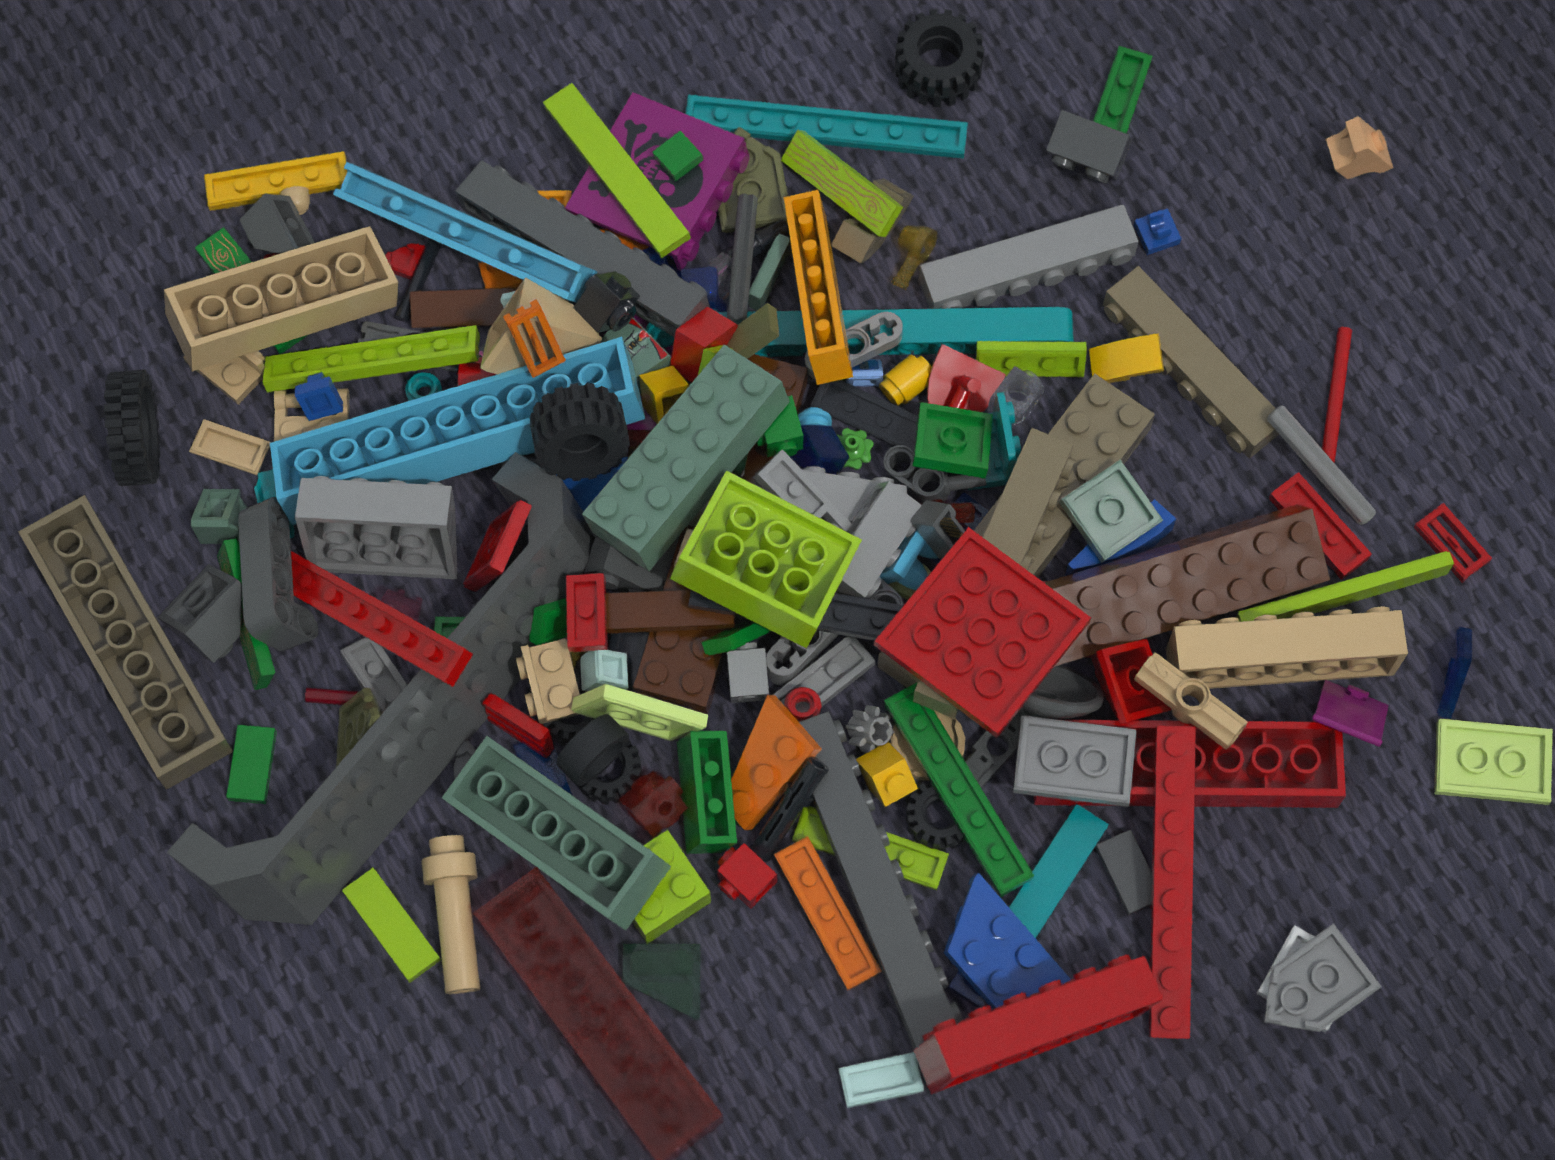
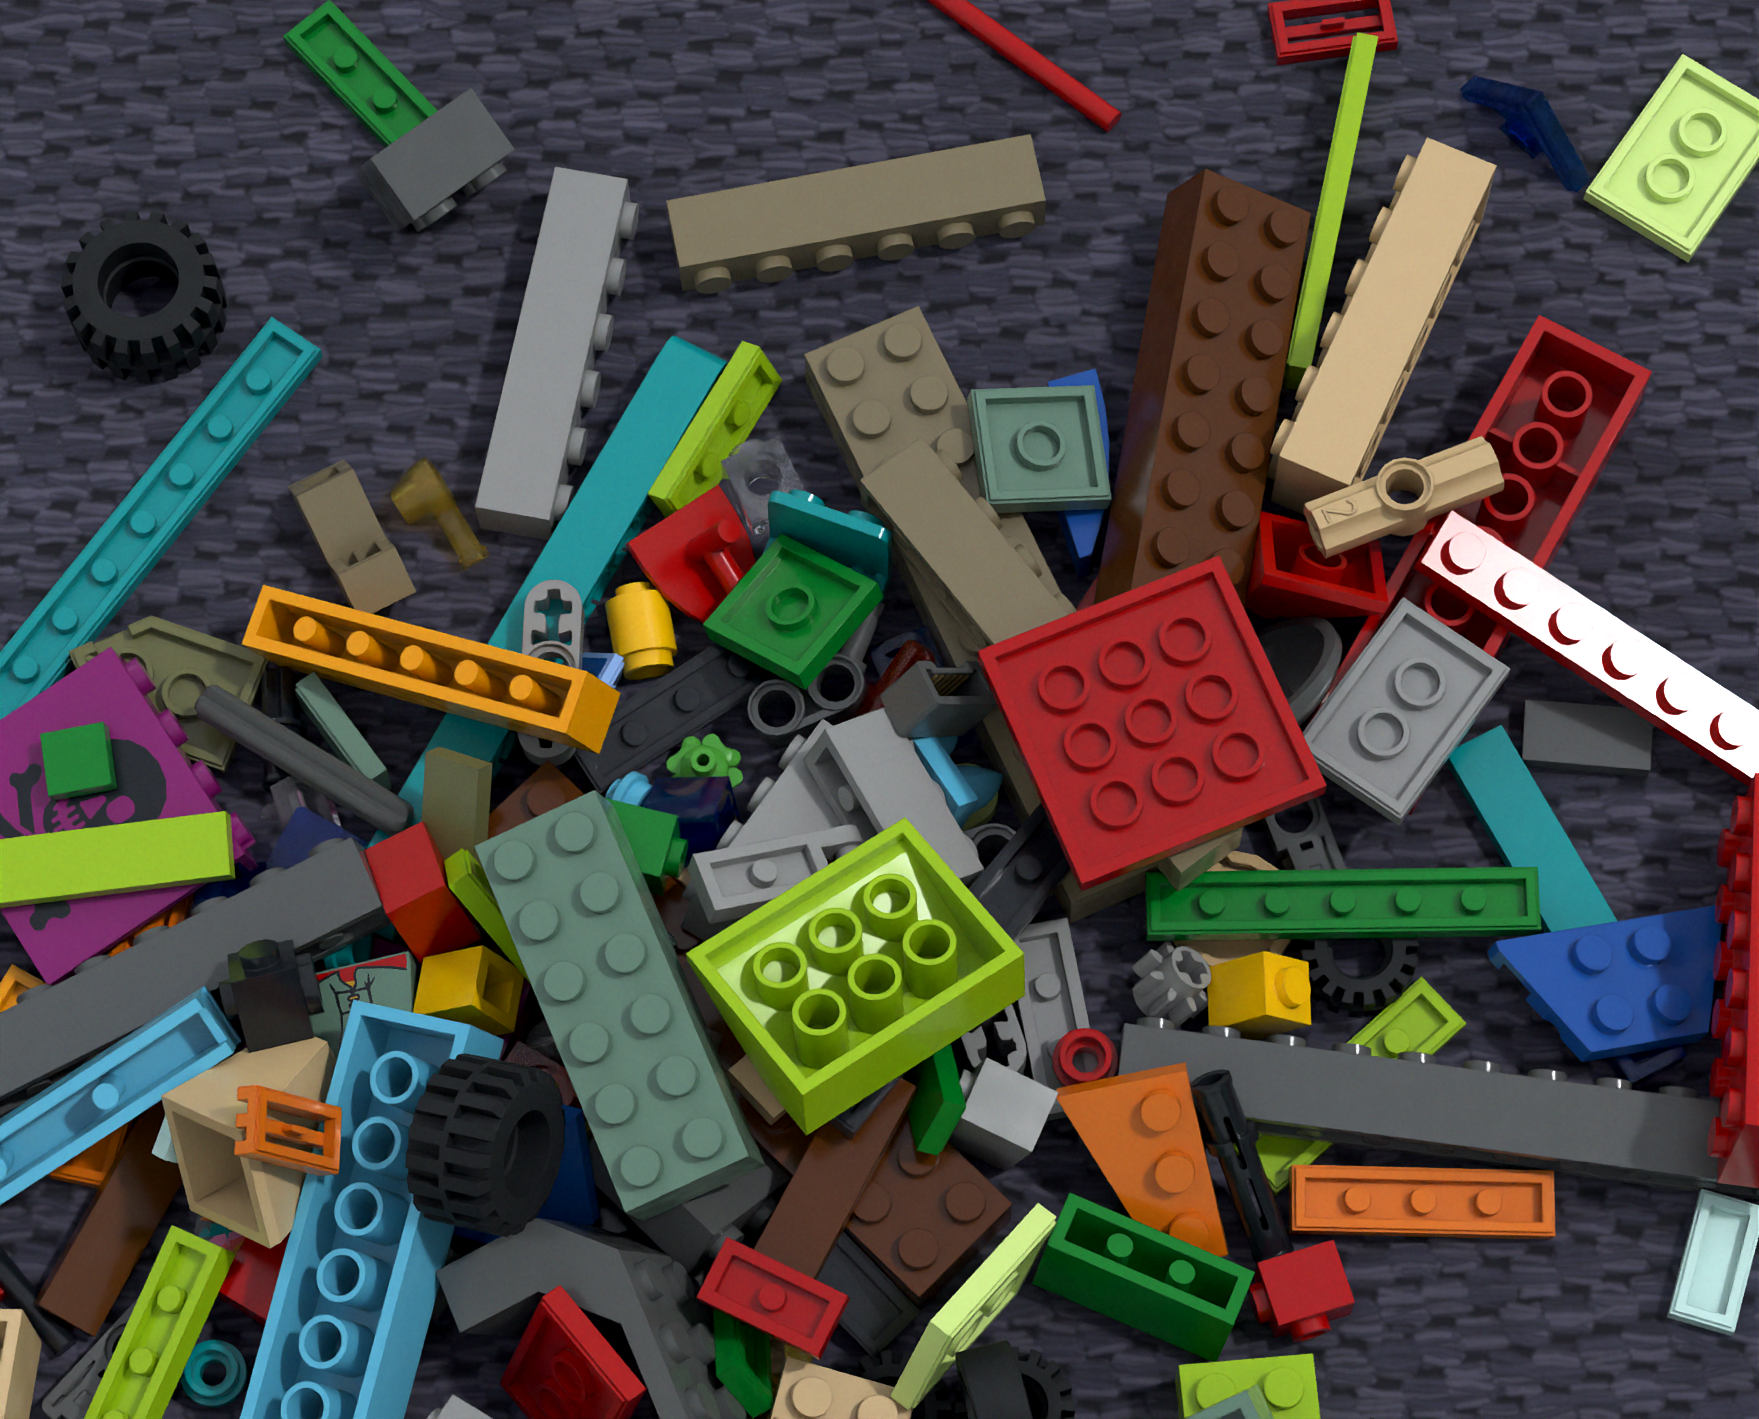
camera: 60 degrees left, 0 degrees up
(603, 668) = (866, 1332): light aqua slope -> none
(654, 802) = (1115, 1366): clear red brick -> none
(841, 183) = (265, 549): lime tile -> none
(1127, 358) = (800, 300): yellow slope -> none
(1157, 231) = (616, 148): blue tile -> none
(1321, 465) = (1123, 128): light grey axle -> none
(1340, 545) = (1266, 167): red plate -> none
(1351, 712) = (1525, 296): magenta container -> none

